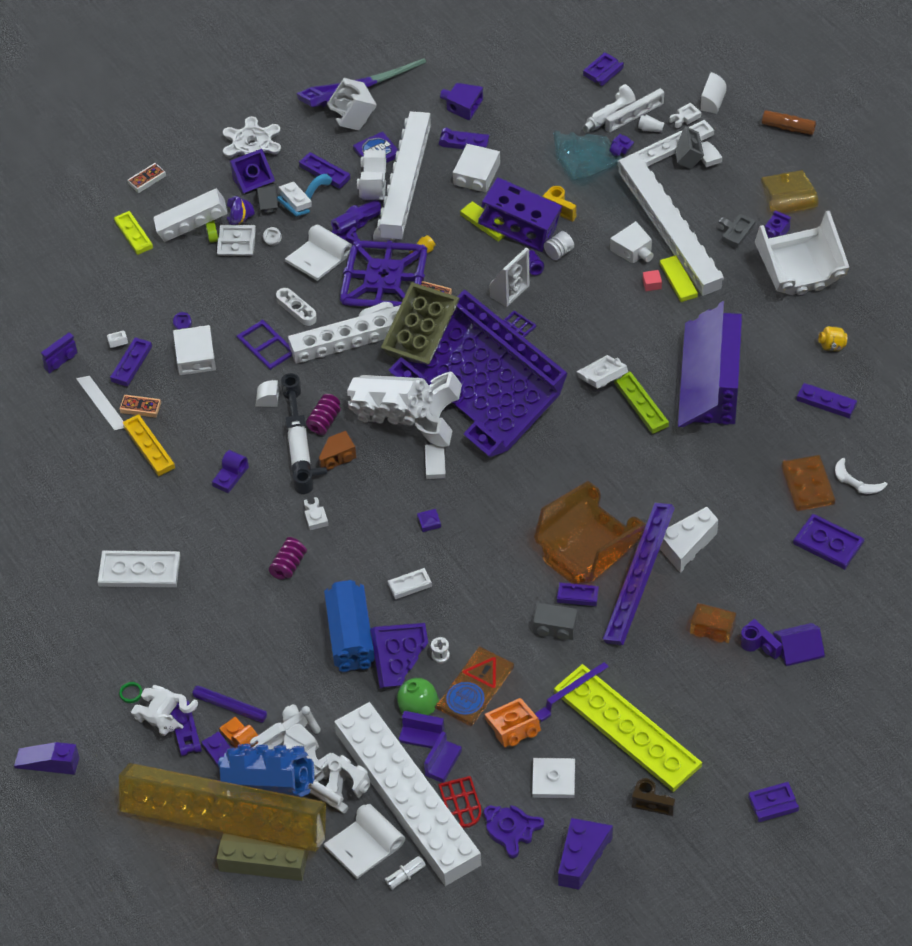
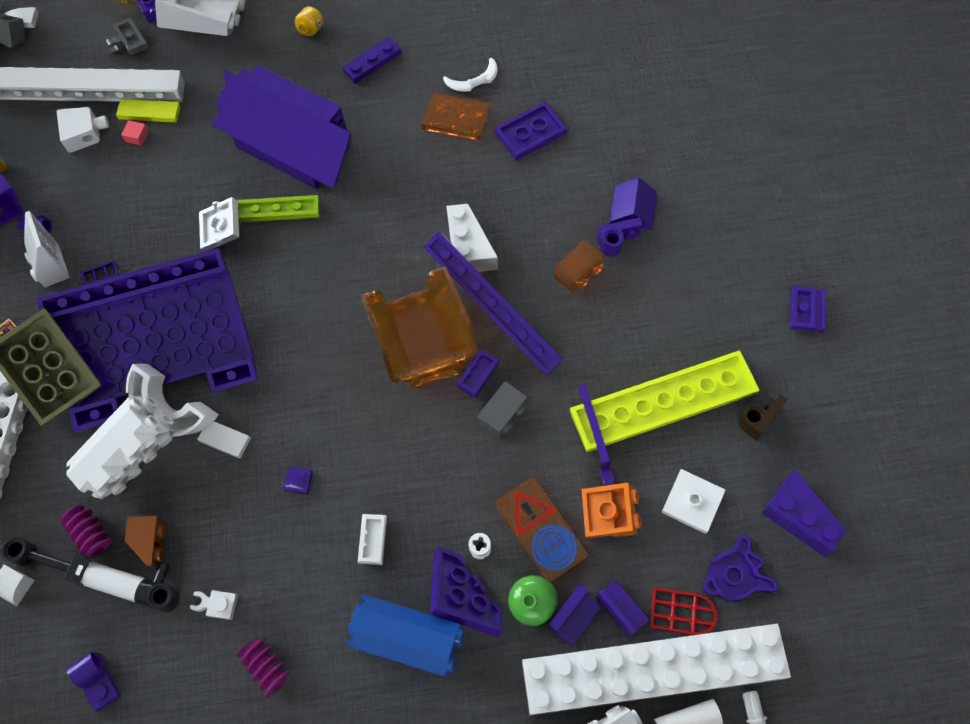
camera: 65 degrees left, 15 degrees up
(559, 245) = (32, 192): white piece -> none

